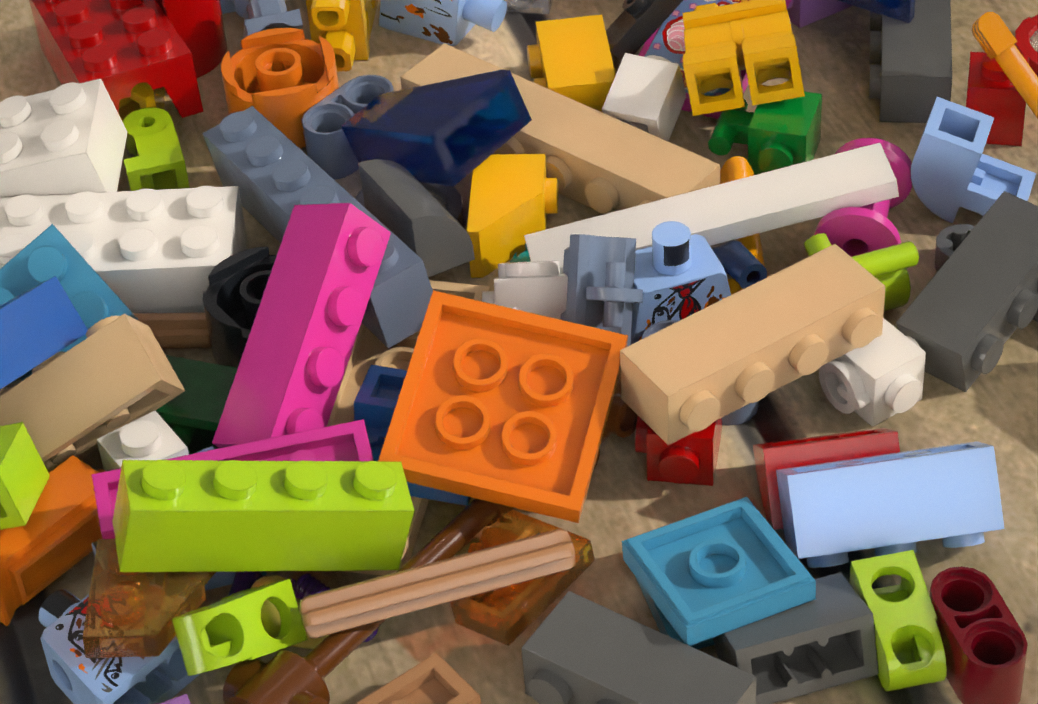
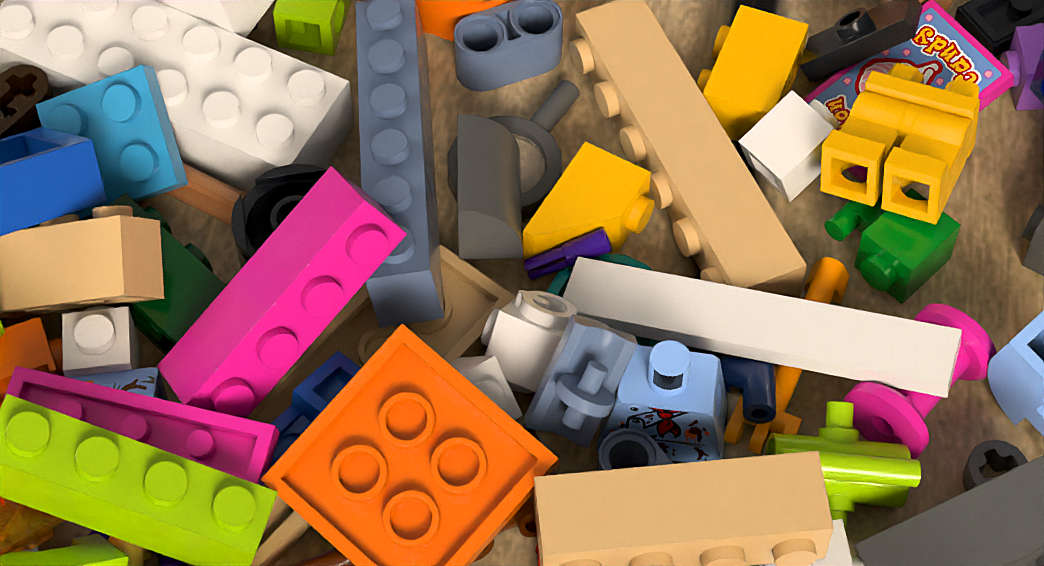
camera: 25 degrees right, 15 degrees up
(440, 127) = (567, 98): clear blue slope -> none
(514, 237) = (586, 246): none -> dark purple pin

